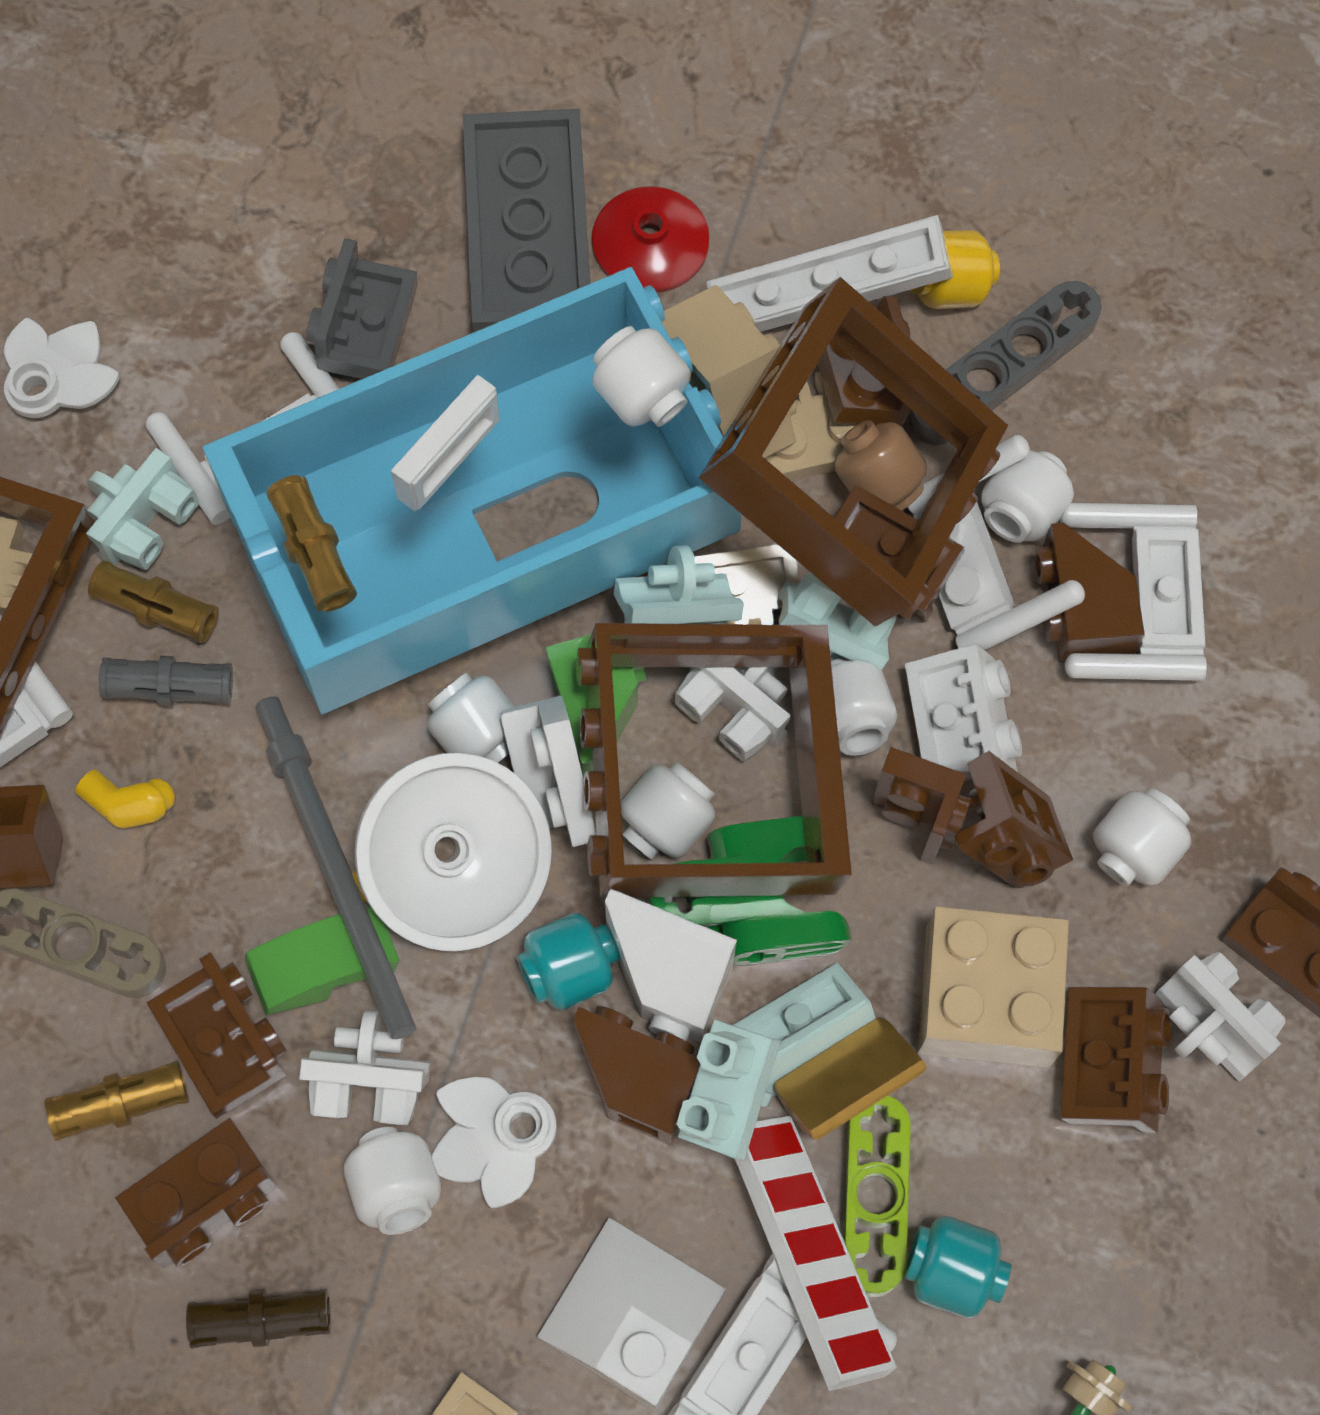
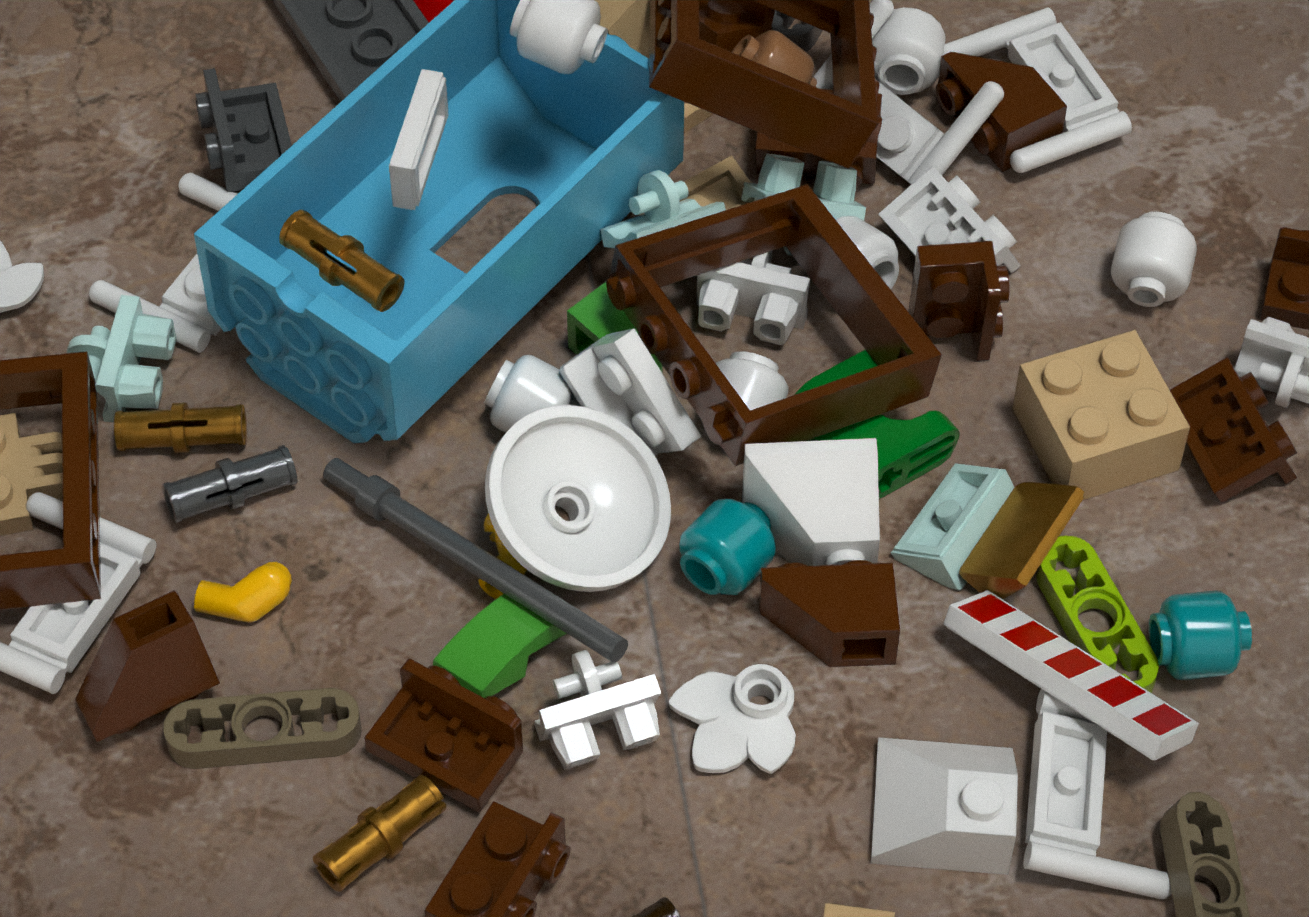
camera: 25 degrees left, 15 degrees down
(392, 1180) = (673, 783): white head -> none
(728, 1089) = (929, 574): light aqua hips -> none
(1018, 825) = (1046, 287): reddish brown bracket -> none

